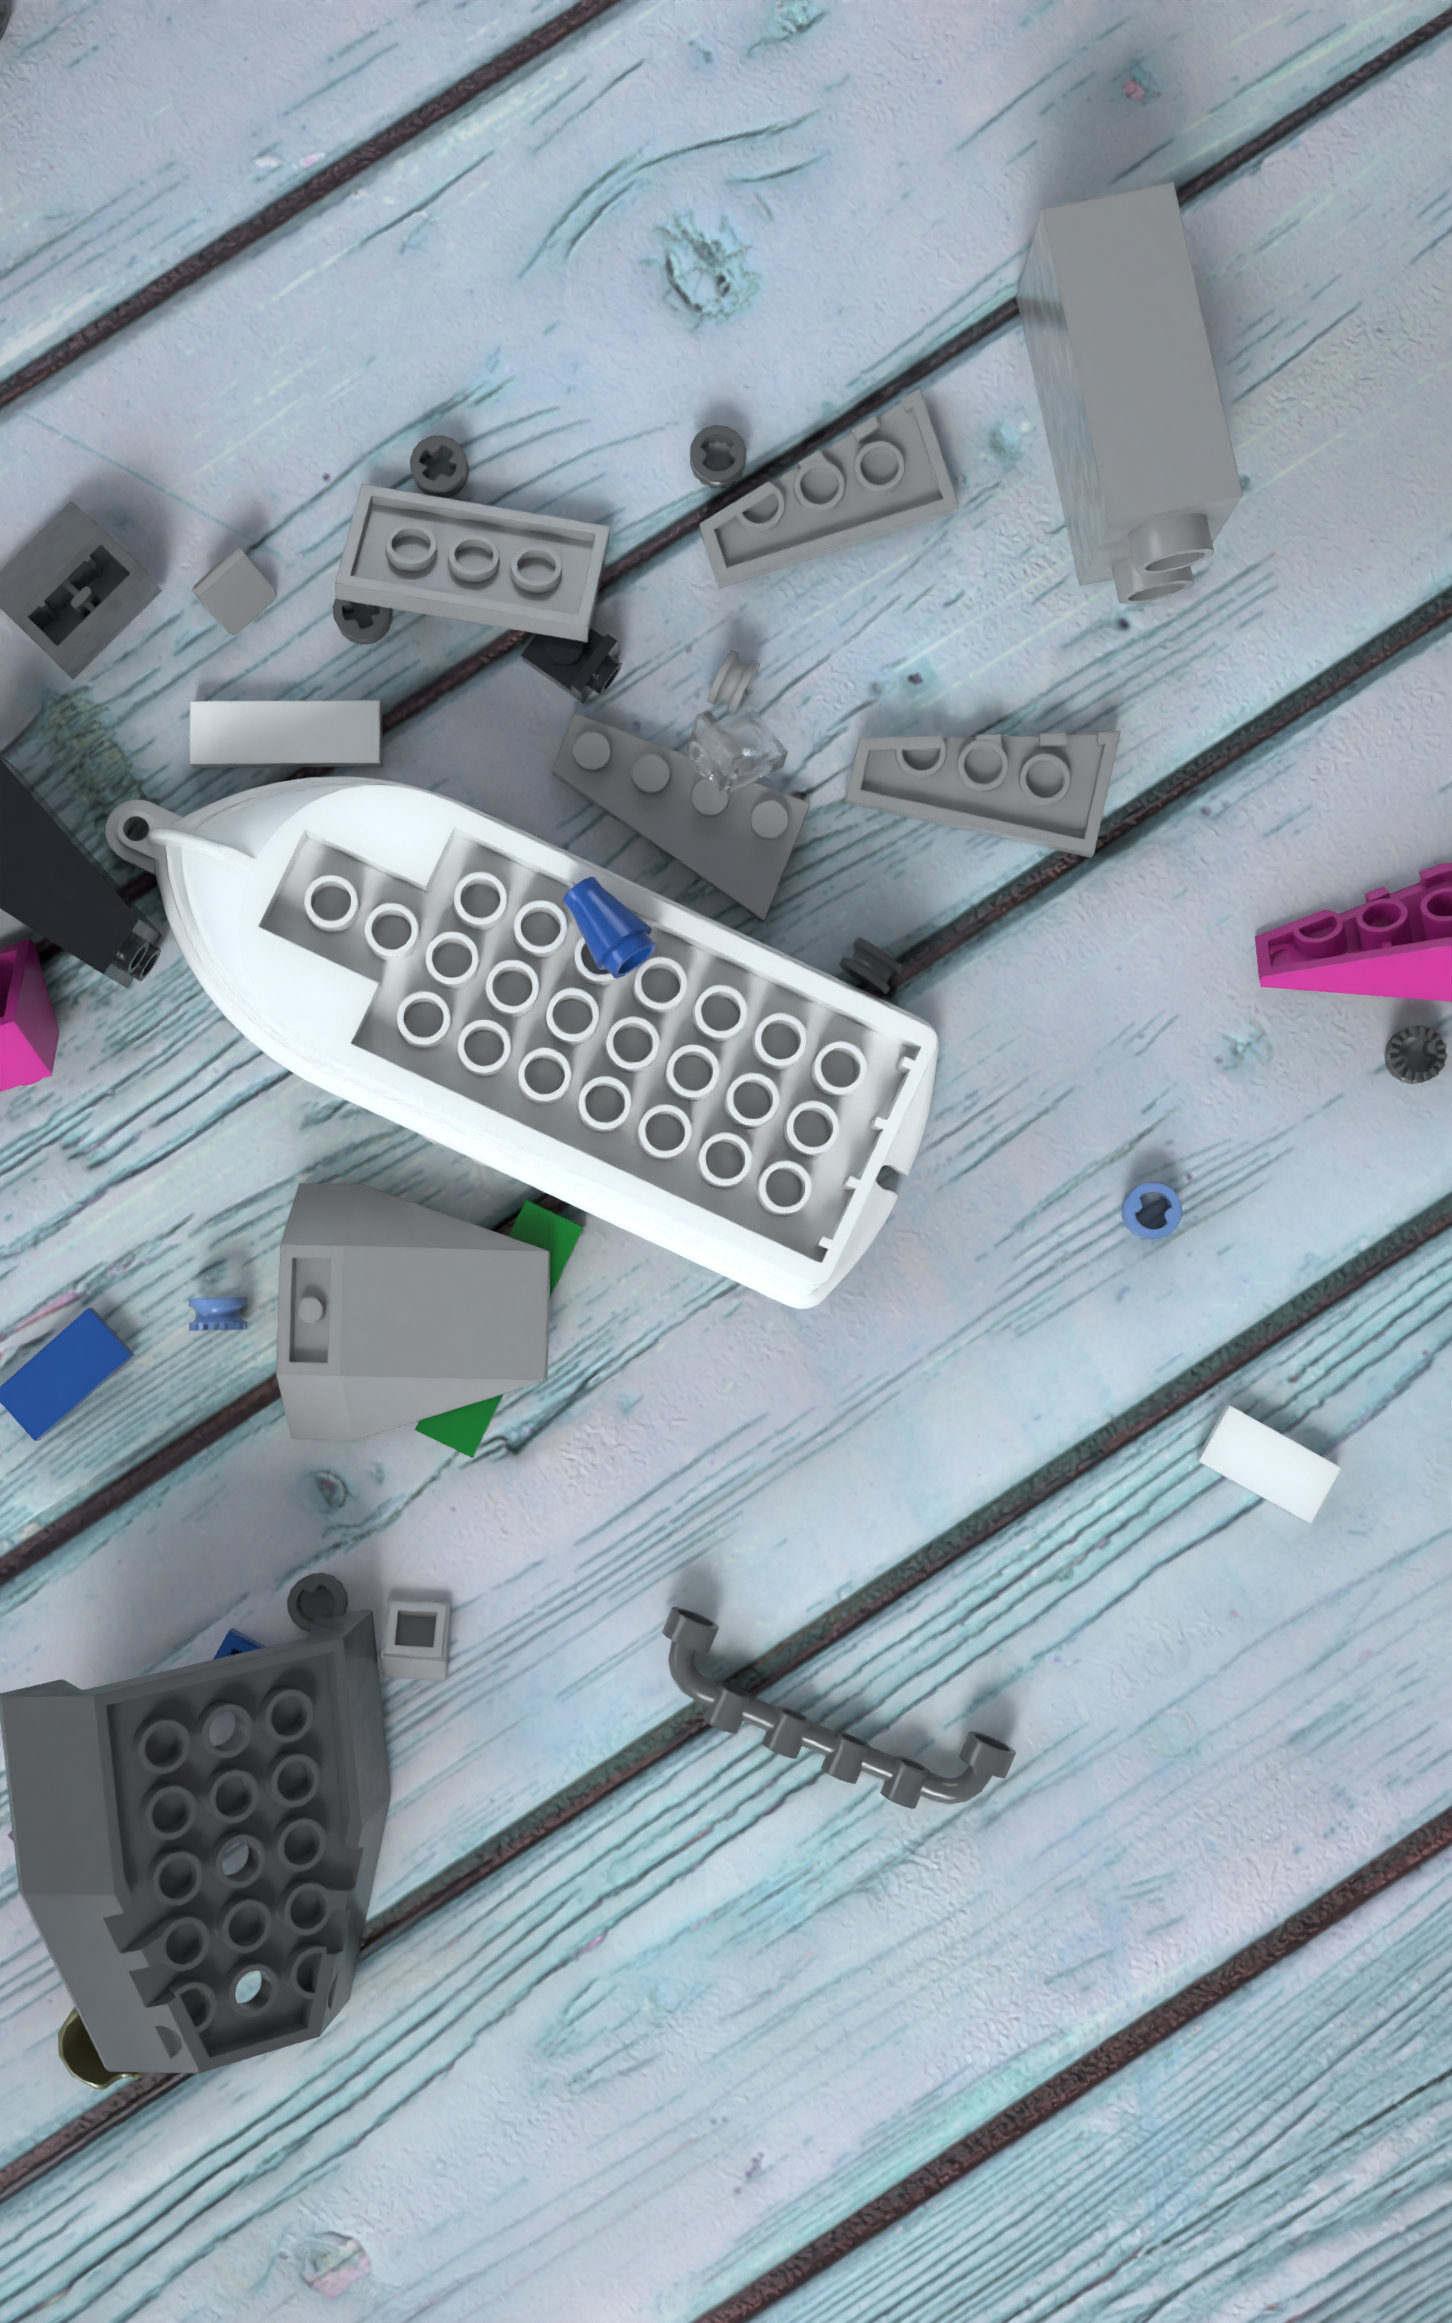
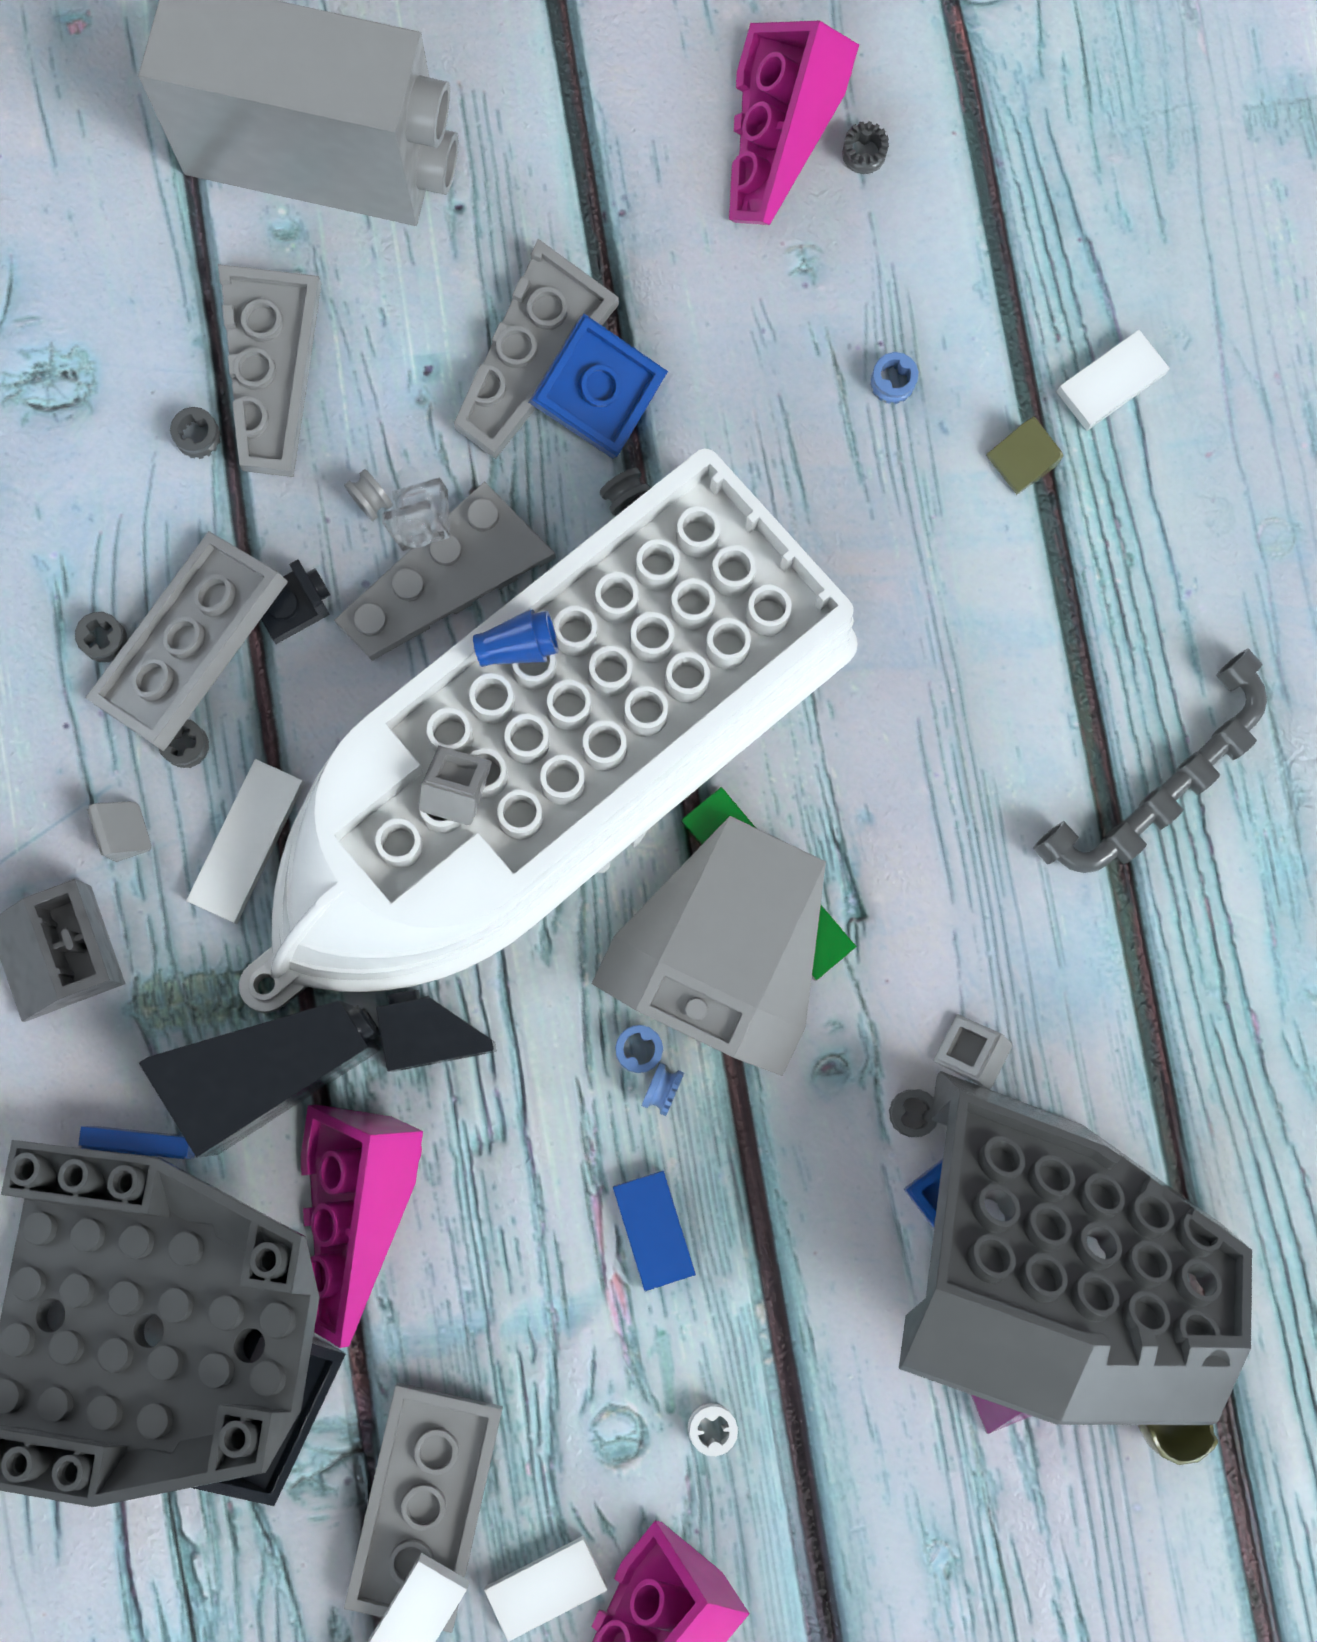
camera: 70 degrees left, 5 degrees down
(162, 1030) = (426, 1033): none -> black slope
(231, 1268) = (646, 1034): none -> medium blue bush
(418, 933) = (454, 785): none -> light grey slope
(978, 879) = (598, 386): none -> blue tile
(1127, 1401) = (1025, 455): none -> olive slope

